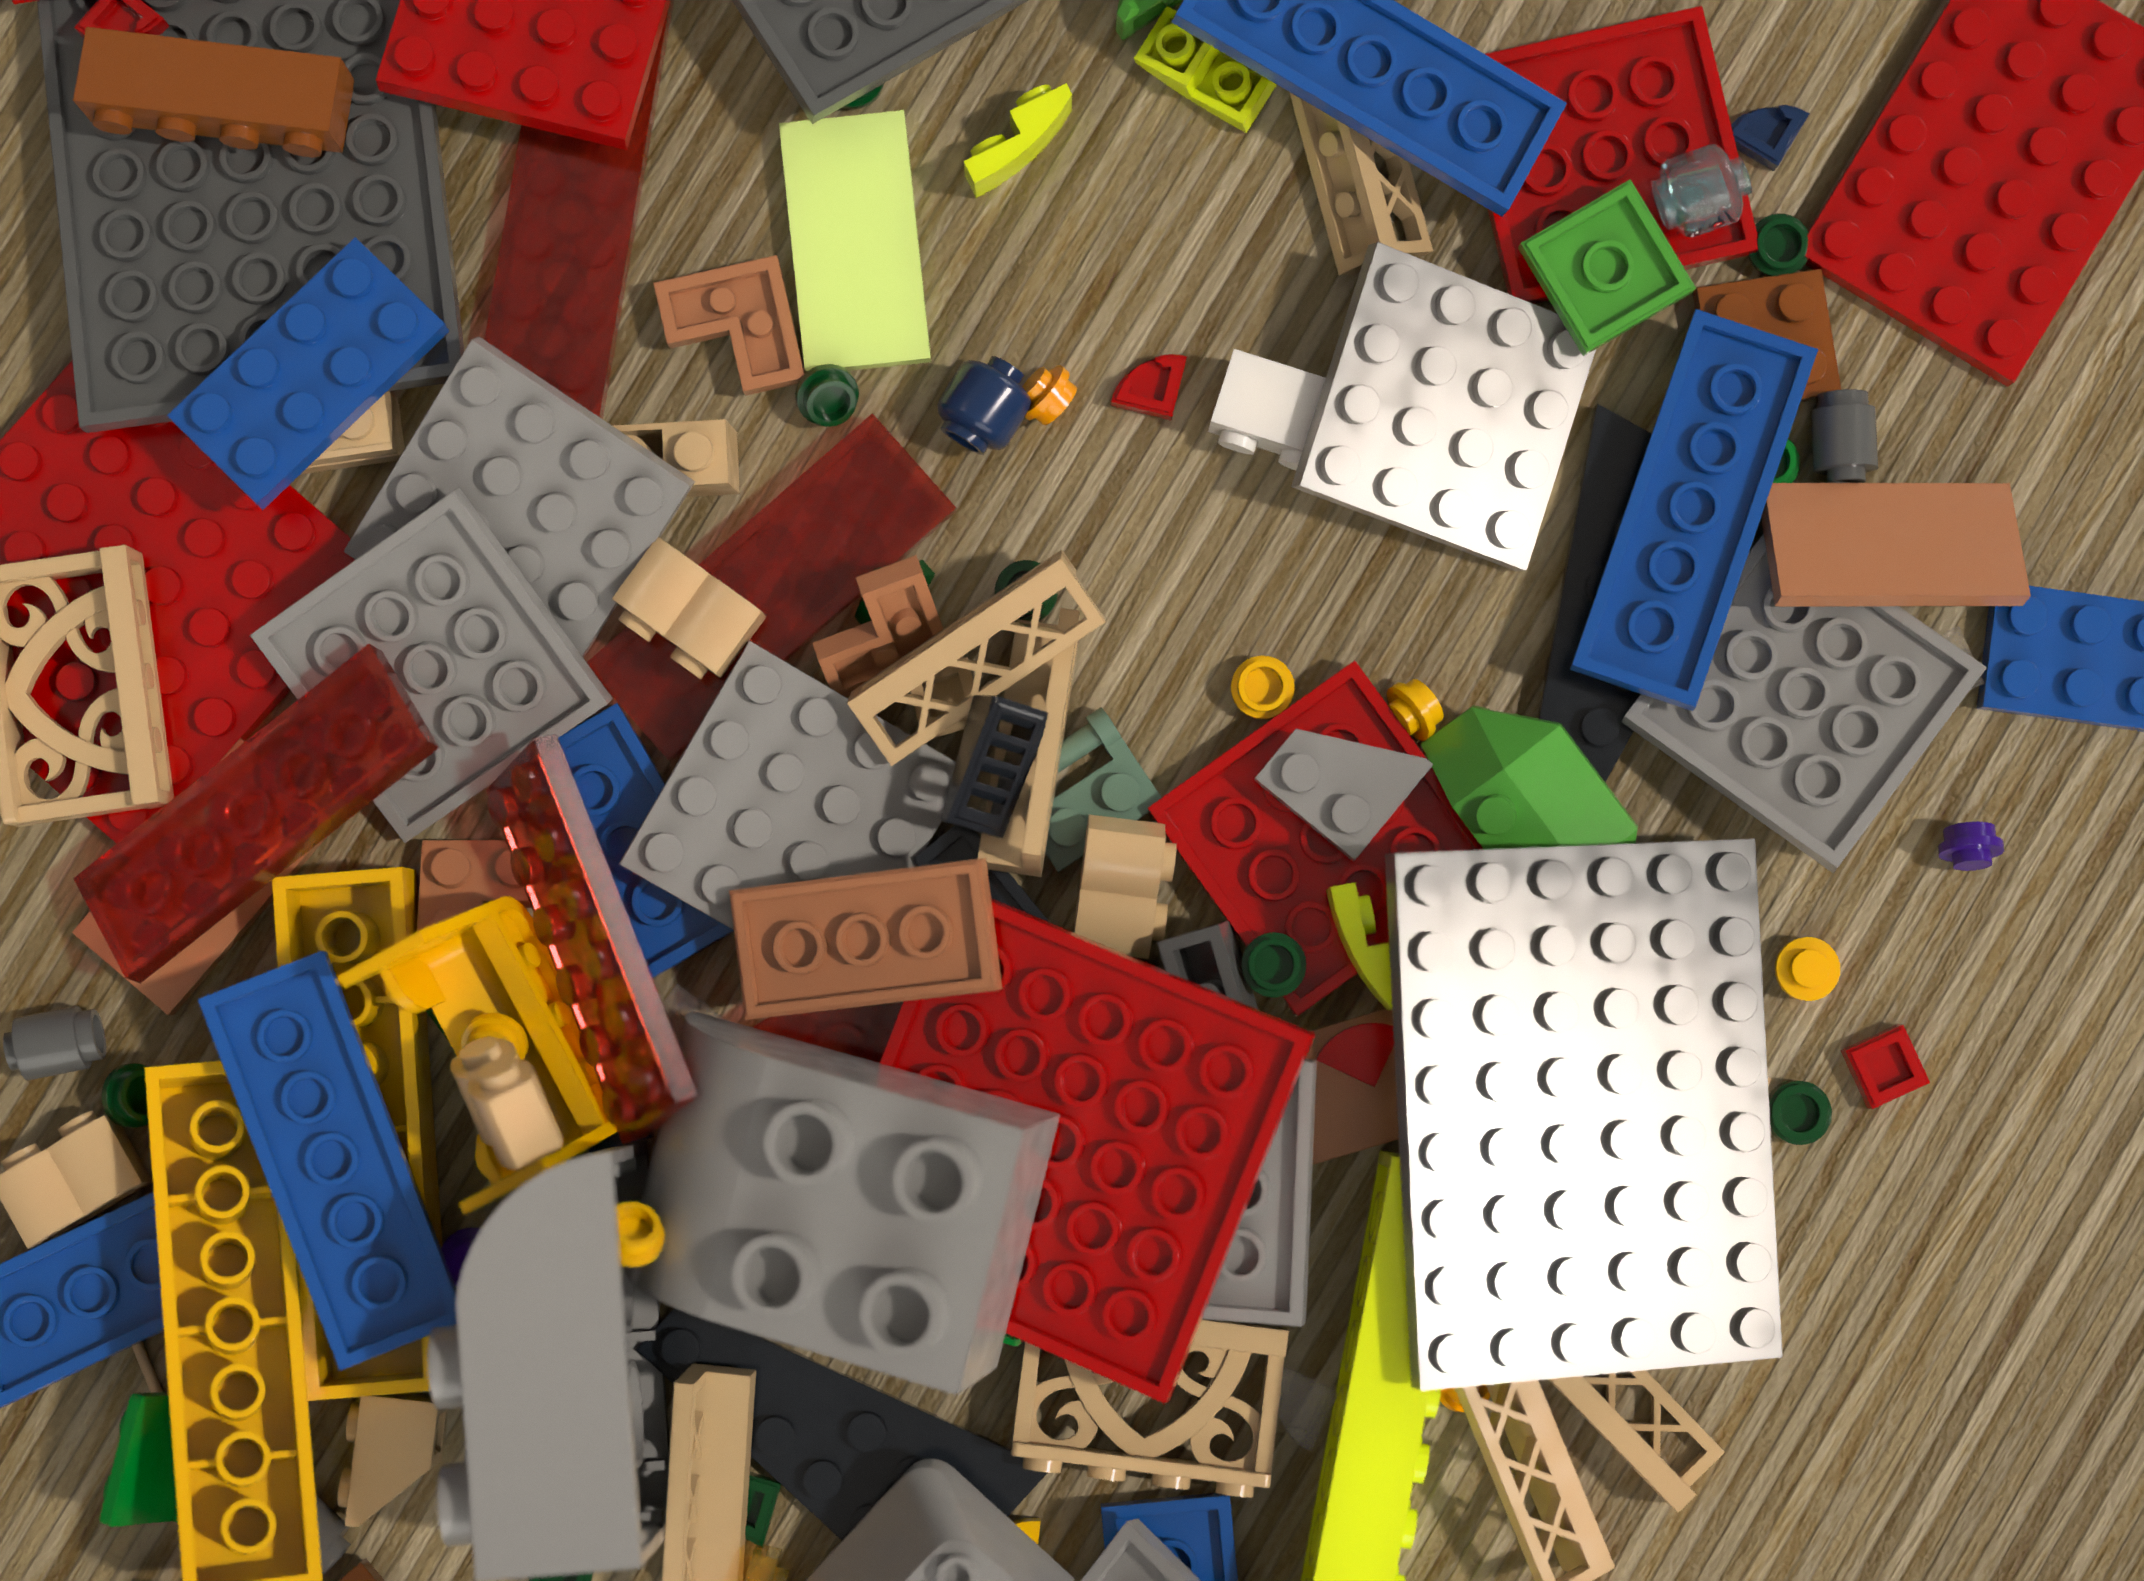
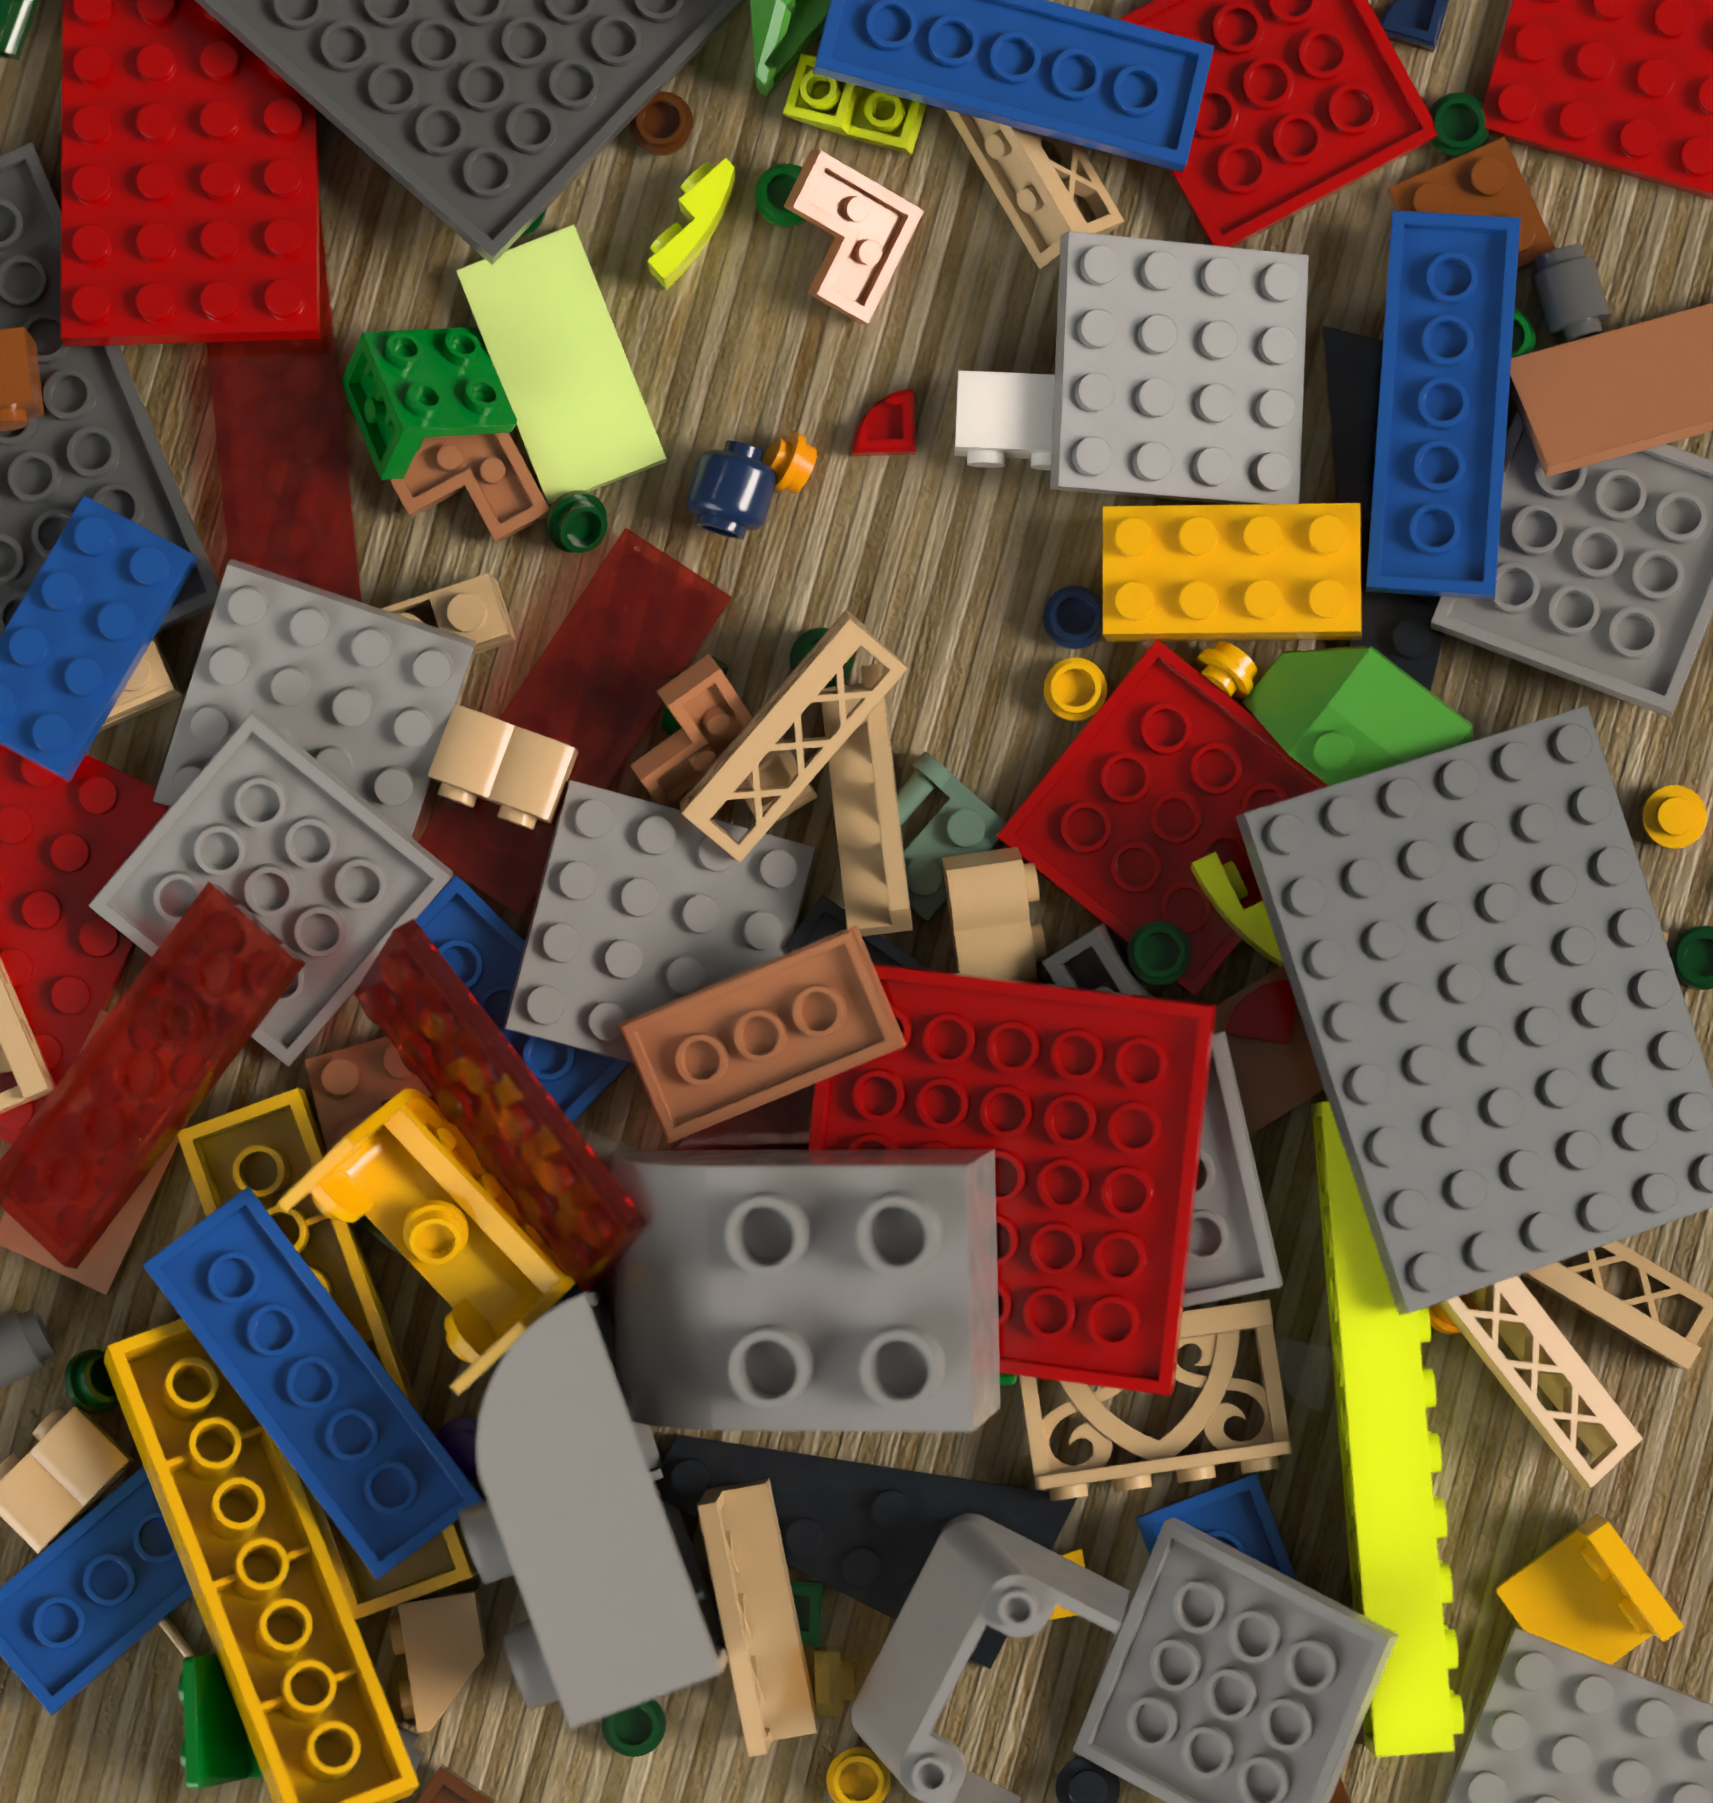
camera: 10 degrees left, 0 degrees up
(506, 1102) = (467, 1279): tan brick -> none
(639, 1234) = (631, 1367): yellow plate -> none
(713, 224) = (422, 387): none -> green bracket
(1012, 772) = (860, 815): black slope -> none
(1016, 38) = (663, 124): none -> reddish brown plate
(1115, 138) = (773, 192): none -> green plate
(1185, 191) = (868, 228): none -> plate
(1281, 618) = (1074, 617): none -> dark blue plate
(1341, 785) = (1176, 763): light grey wing -> none
(1445, 616) = (1232, 572): none -> yellow brick
(1606, 267) = (1296, 194): bright green plate -> none
(1701, 190) = (1366, 95): clear light blue head -> none

